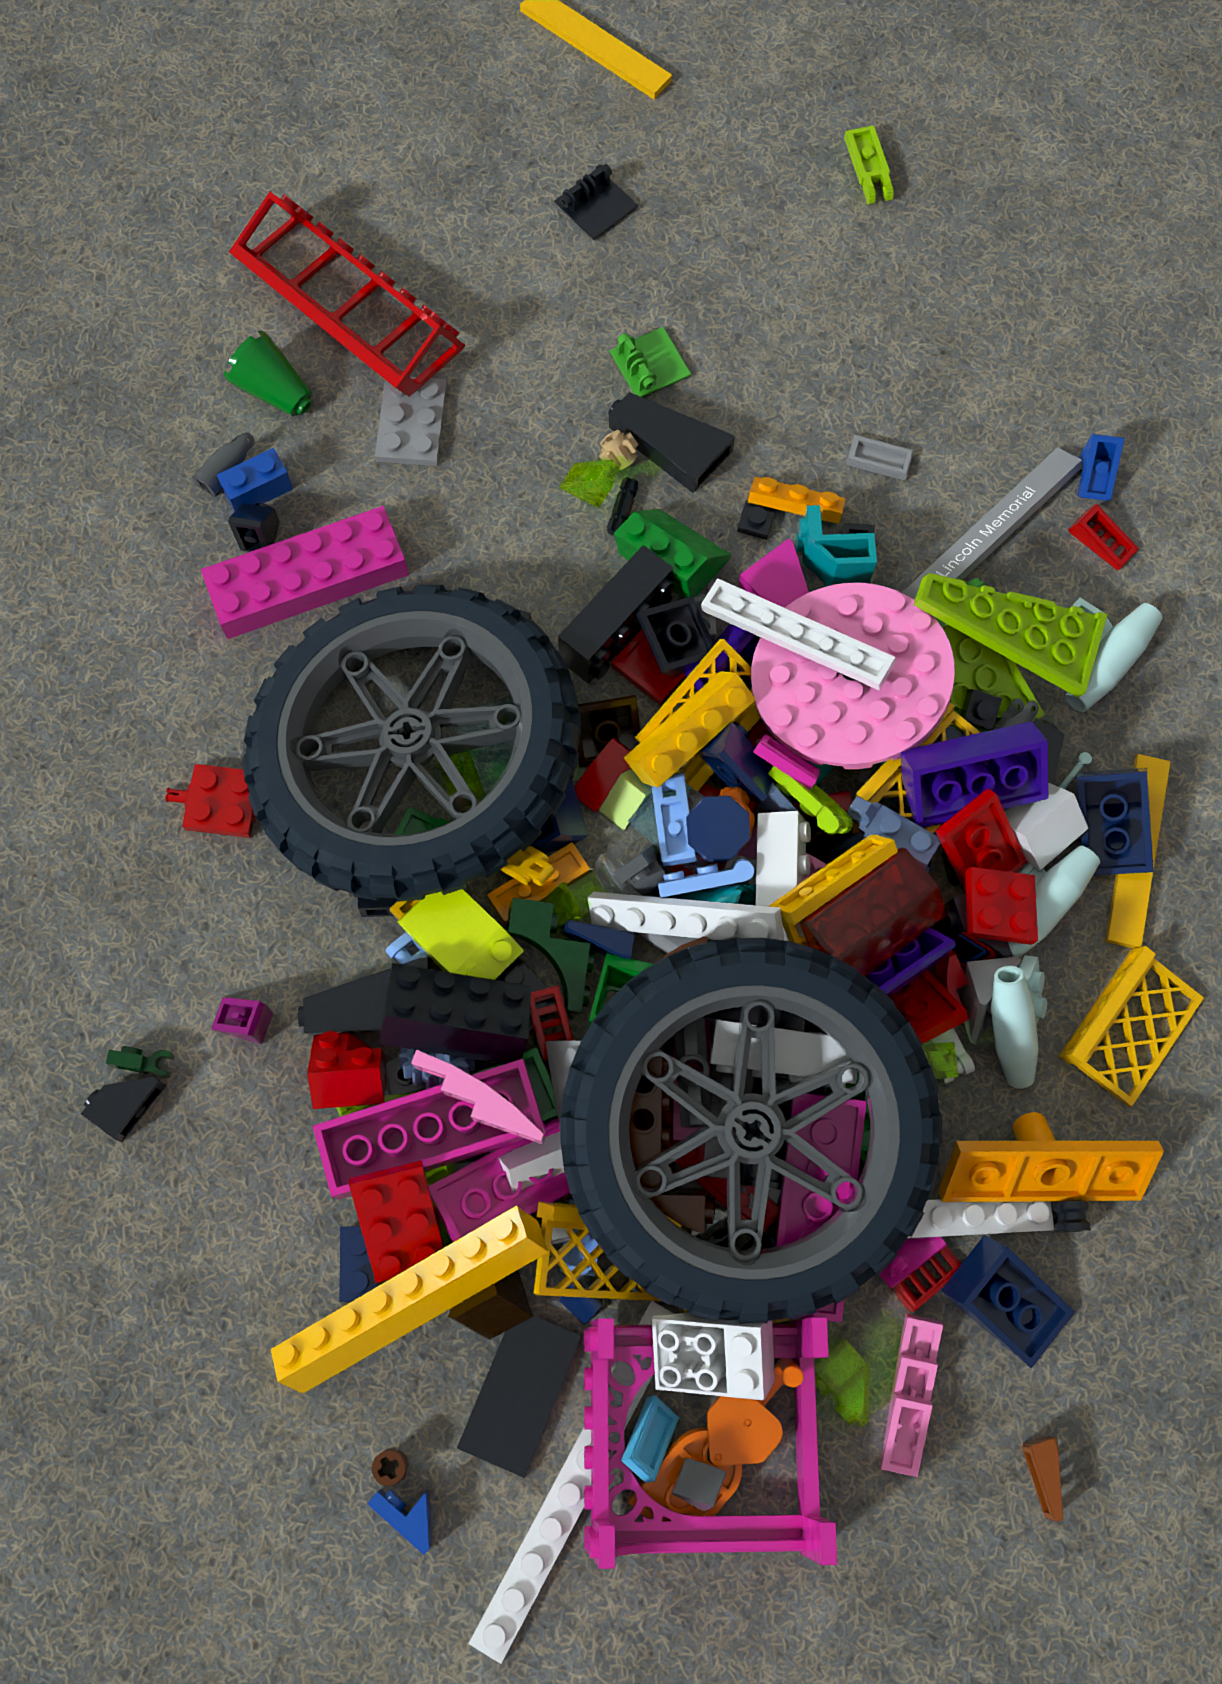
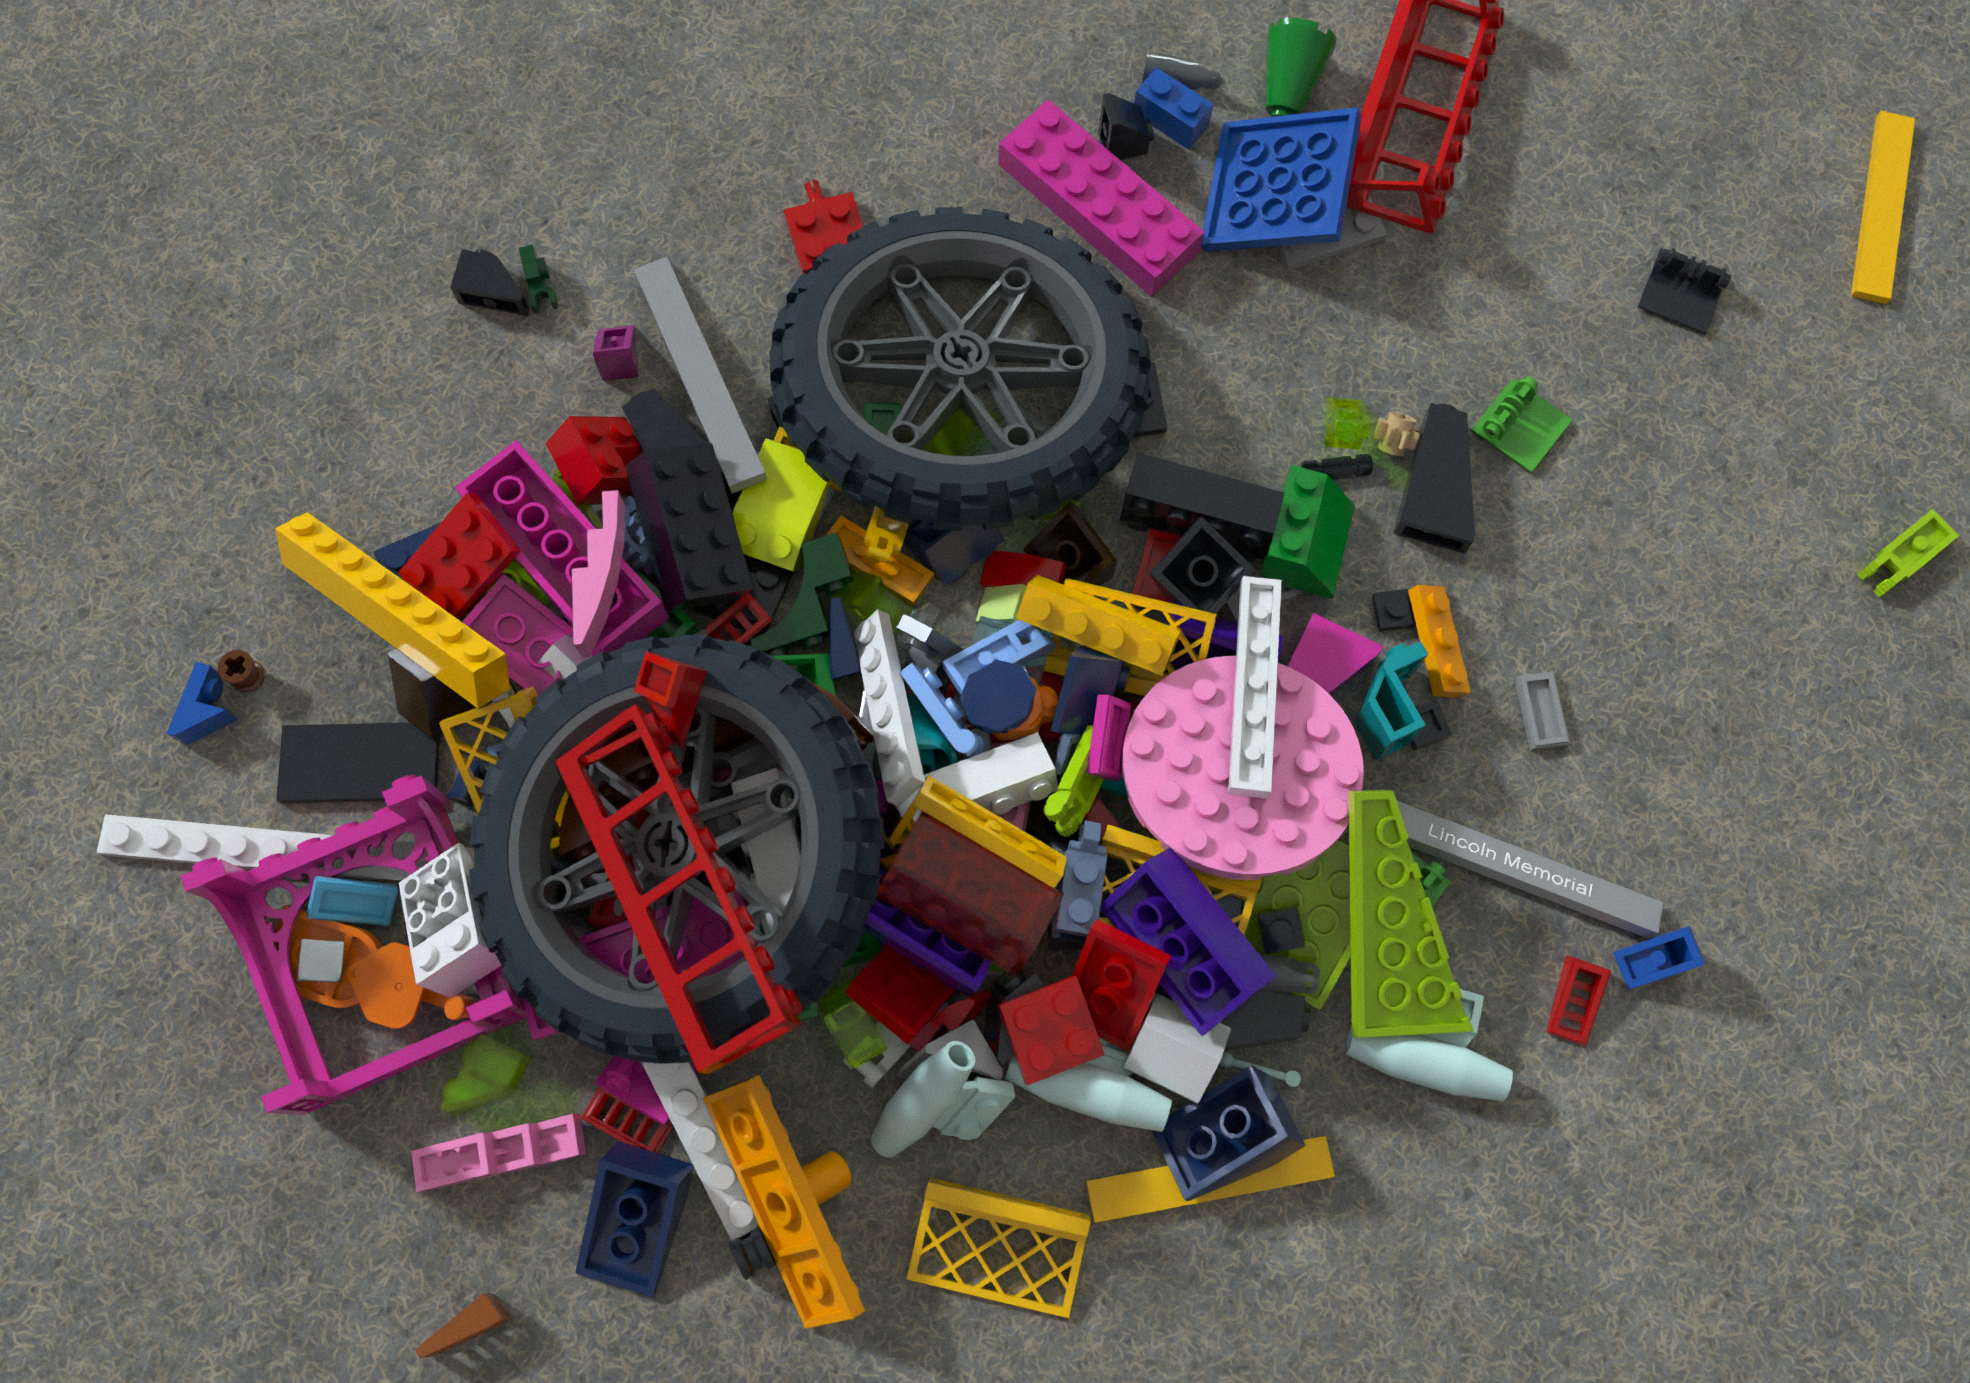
camera: 65 degrees right, 0 degrees up
(304, 954) = (700, 375): none -> light grey tile
(368, 429) = (1281, 180): none -> blue plate
(634, 1068) = (671, 691): none -> red slope
(813, 1167) = (636, 905): none -> red window

